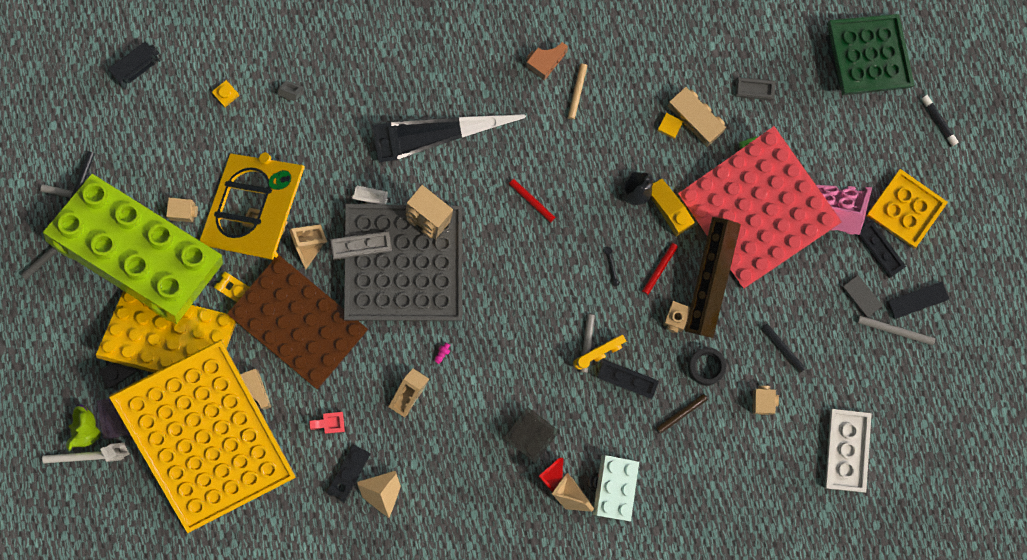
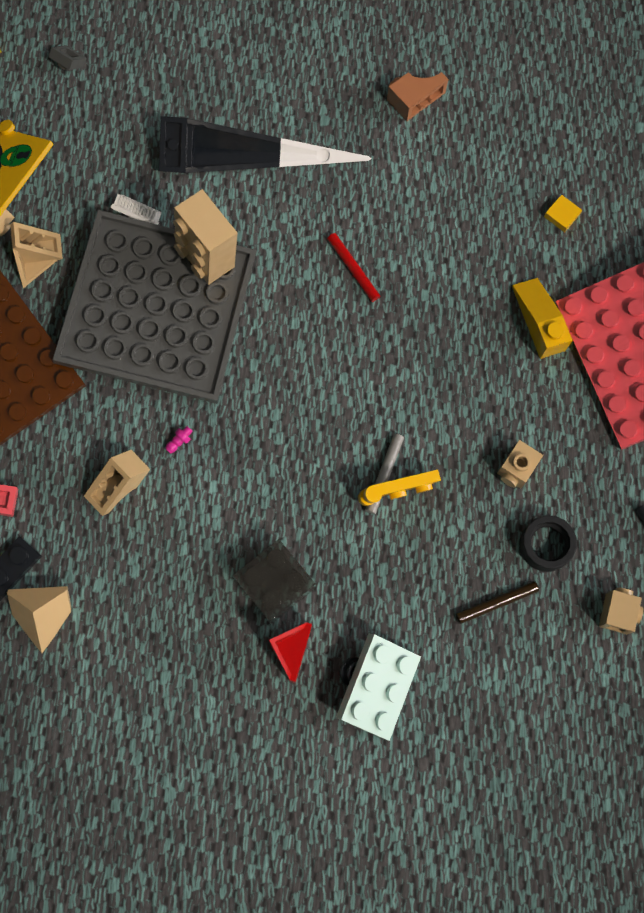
camera: 10 degrees right, 5 degrees down
(361, 245) = (103, 266): light grey tile -> none
(571, 496) = (311, 682): tan slope -> none
(577, 91) = (447, 143): tan bar -> none
(608, 251) = (443, 357): black hinge -> none
(627, 379) = (430, 535): black plate -> none
(637, 188) = (502, 281): black hair -> none
(659, 269) = (508, 395): red bar -> none
(697, 116) = (602, 207): tan brick -> none
(712, 277) = (582, 419): dark brown brick -> none

